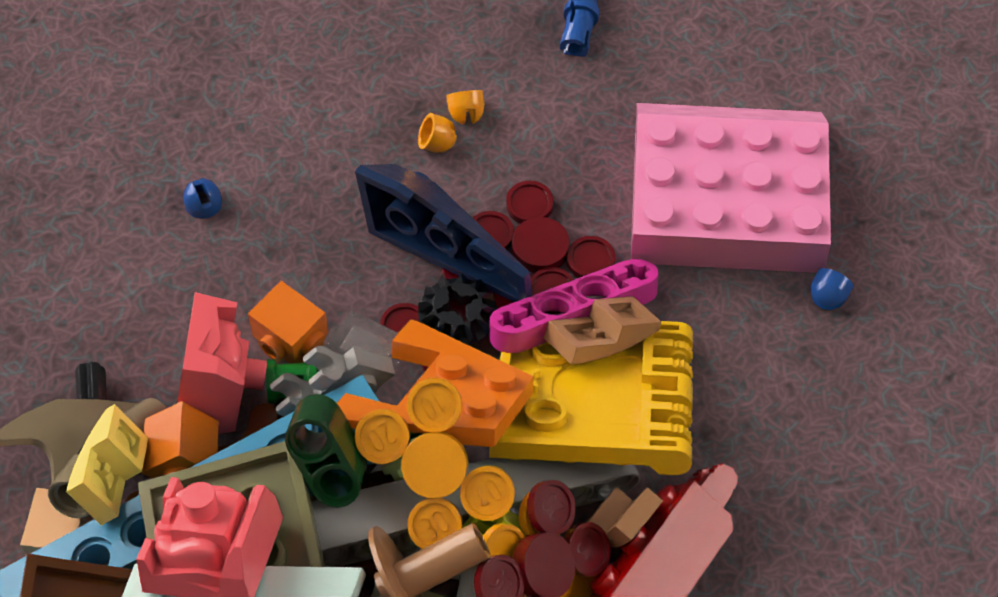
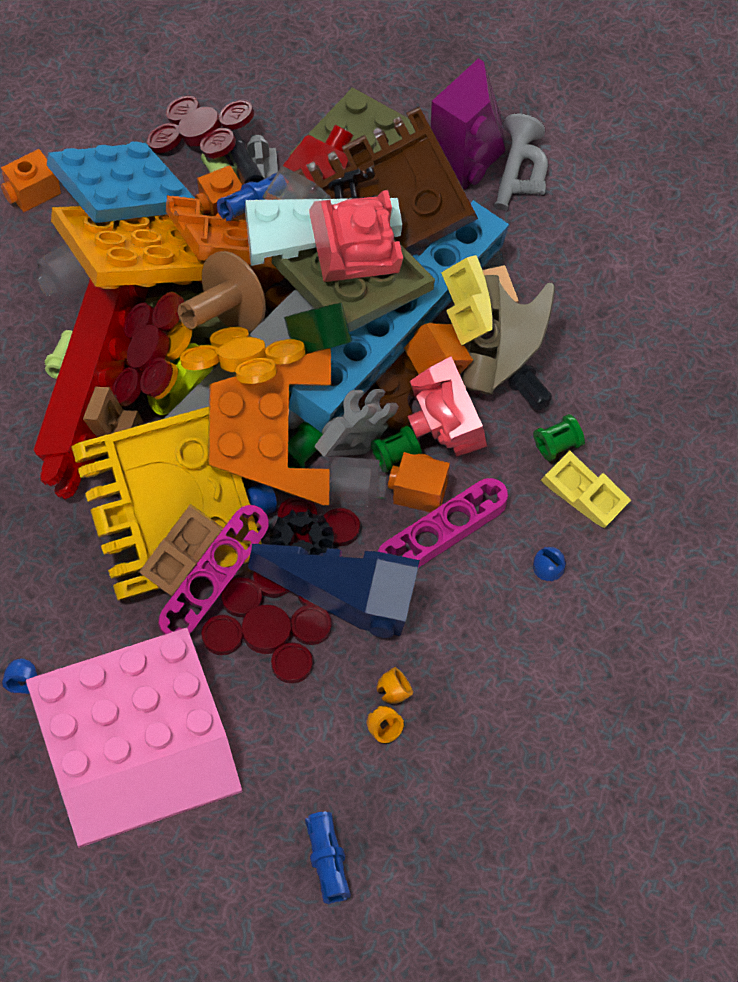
camera: 155 degrees right, 0 degrees up
(100, 320) = (559, 437): none -> green bush
(111, 260) = (580, 487): none -> light yellow slope
(291, 270) = (447, 533): none -> dark pink beam

